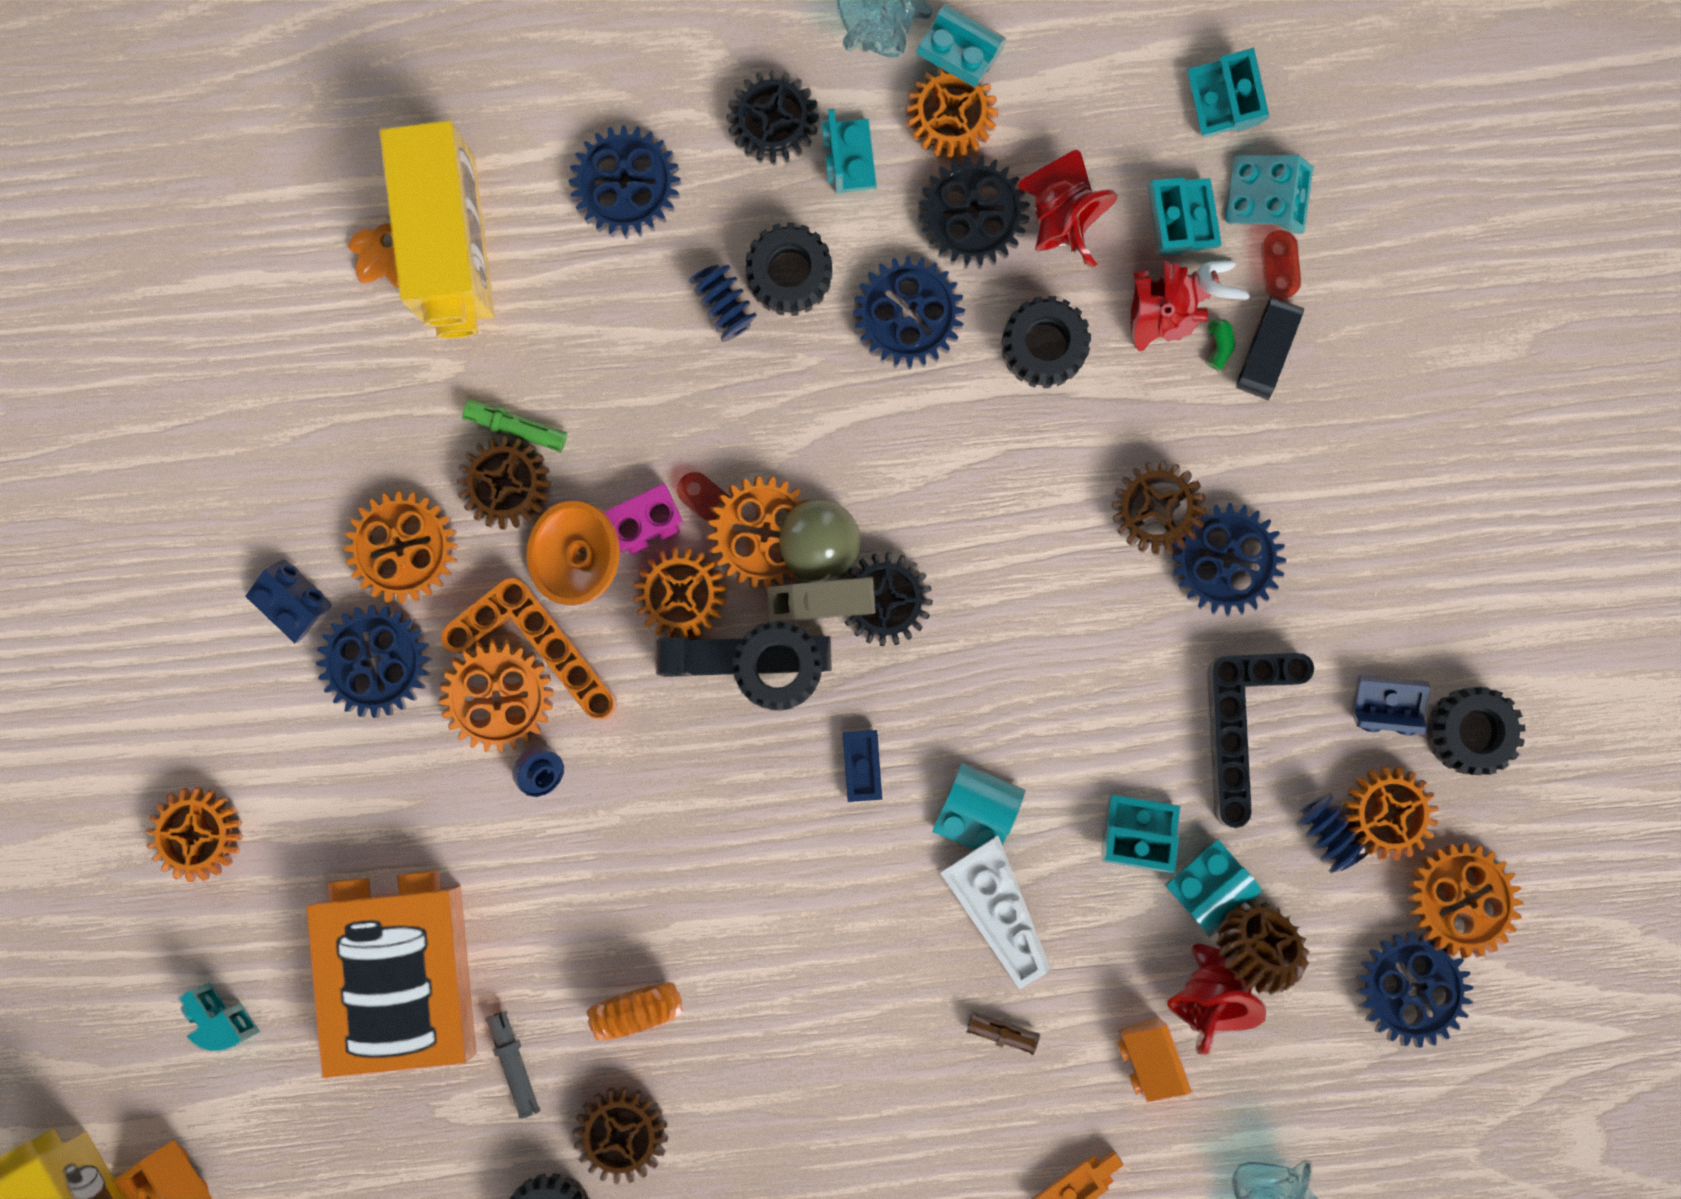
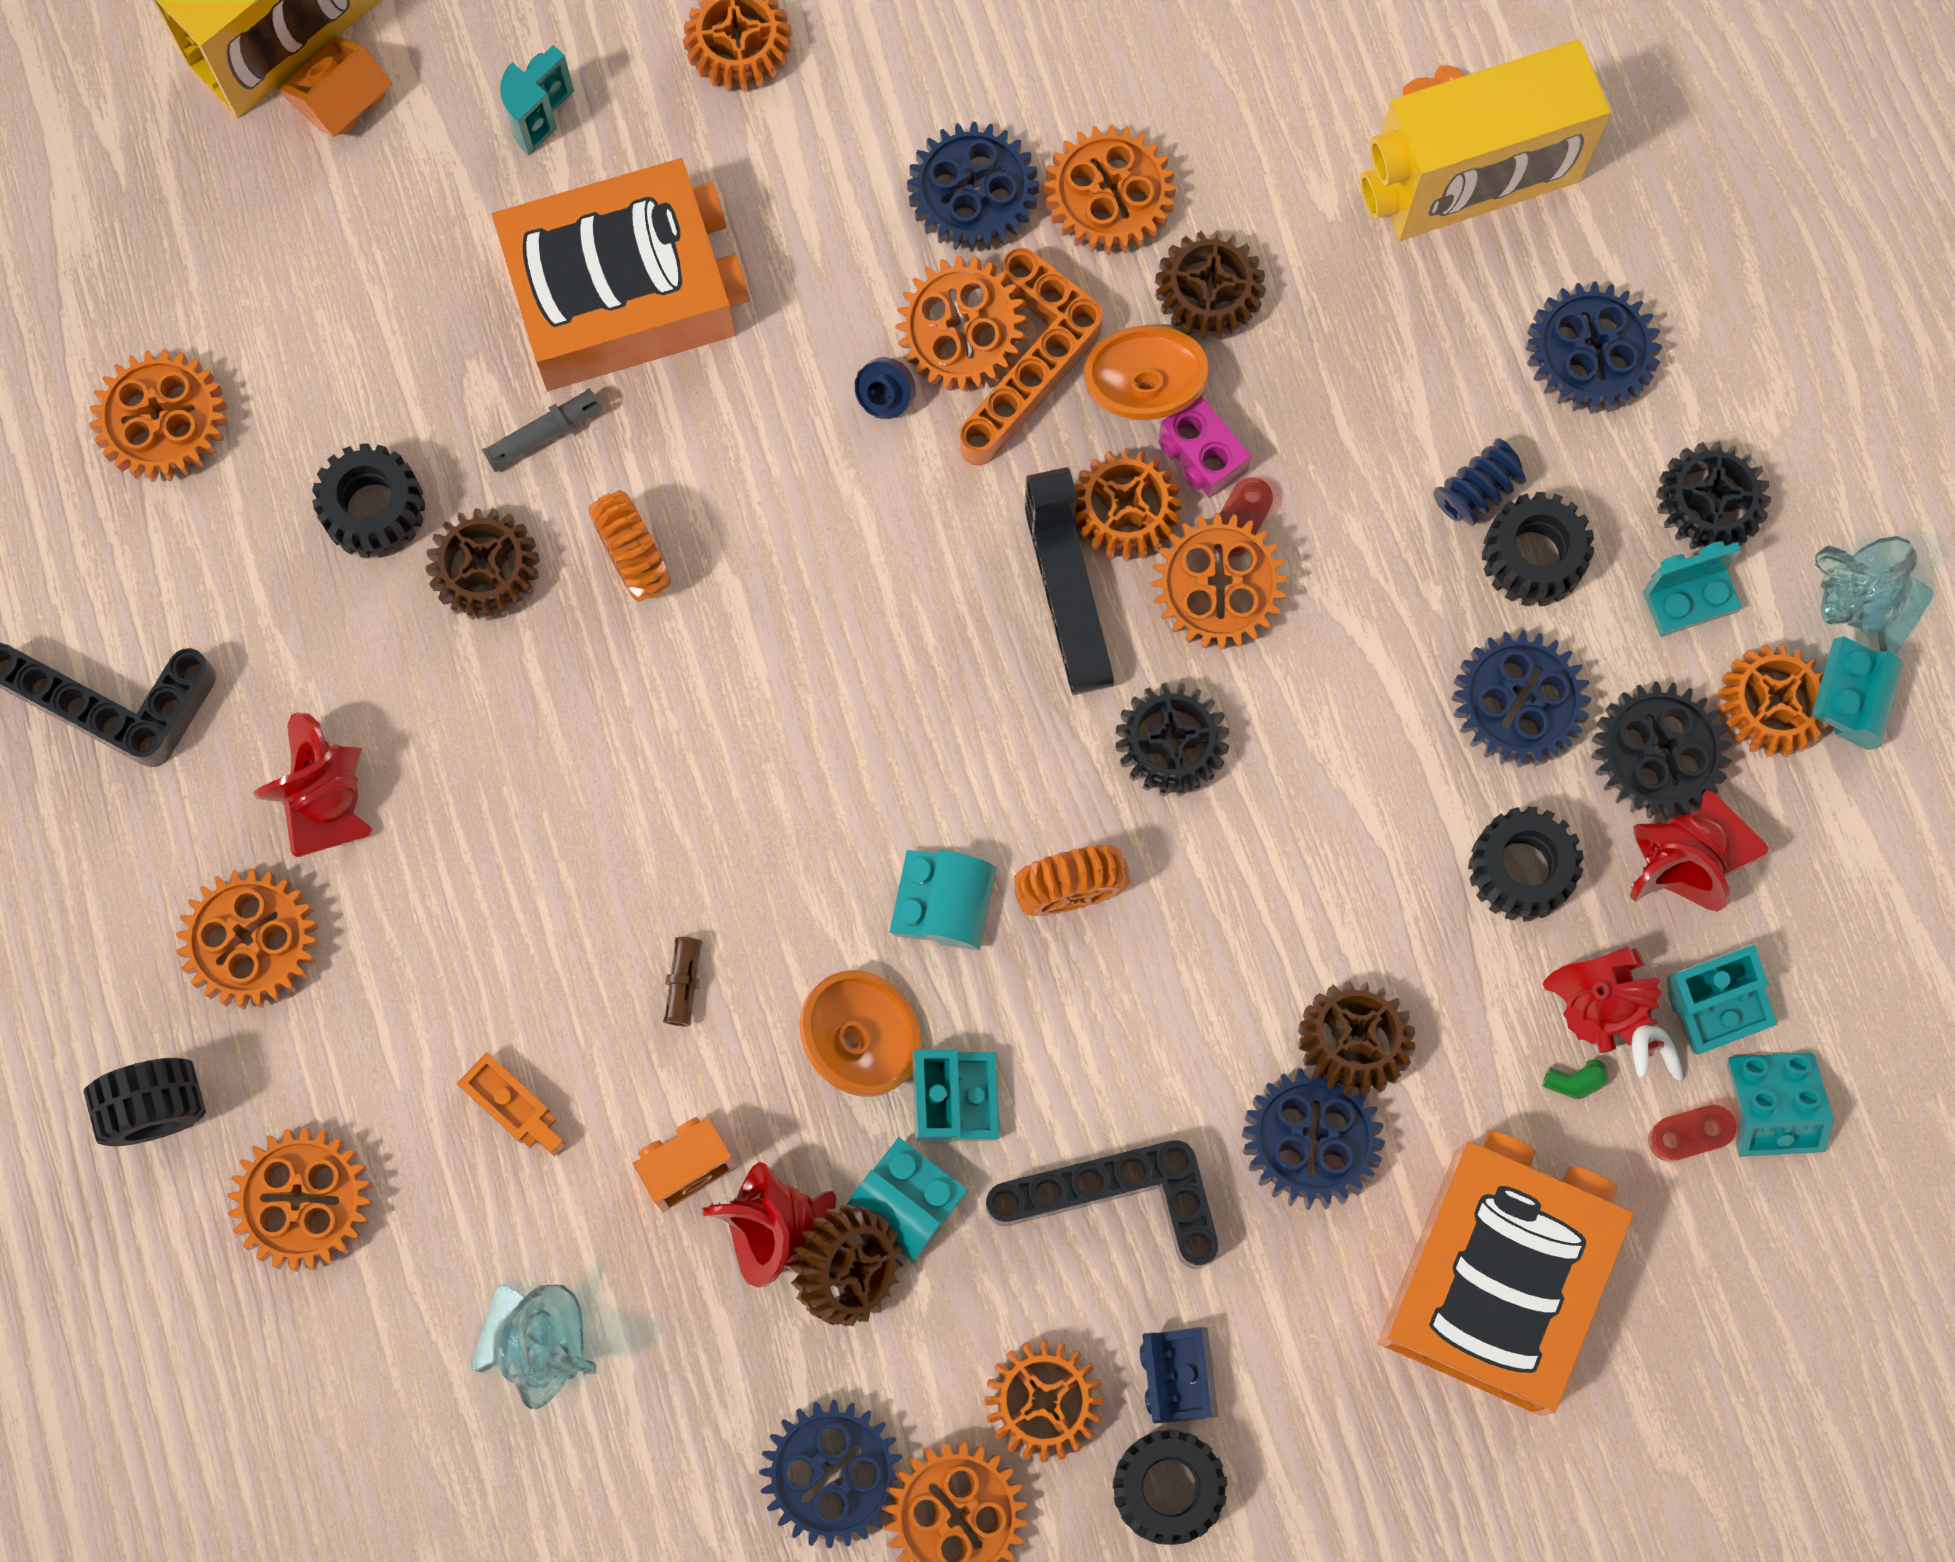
camera: 75 degrees right, 10 degrees down
(288, 599) = (1023, 82): dark blue bracket -> none
(502, 421) = (1280, 268): bright green pin -> none
(746, 665) = (1071, 587): black tyre -> none
(819, 540) = (1224, 649): olive piece -> none
(821, 600) = (1153, 655): dark tan slope -> none
(862, 766) = (968, 753): dark blue plate -> none
(989, 705) = (1071, 880): none -> orange gear
(996, 906) = (835, 938): white wing -> none
(1078, 881) = (873, 1020): none -> orange dish
(1229, 93) = (1886, 1024): teal brick -> none
(1269, 348) = (1587, 1138): black beam -> none
(1331, 833) = (1001, 1329): dark blue piece -> none
(1367, 435) = (1508, 1273): none -> orange brick

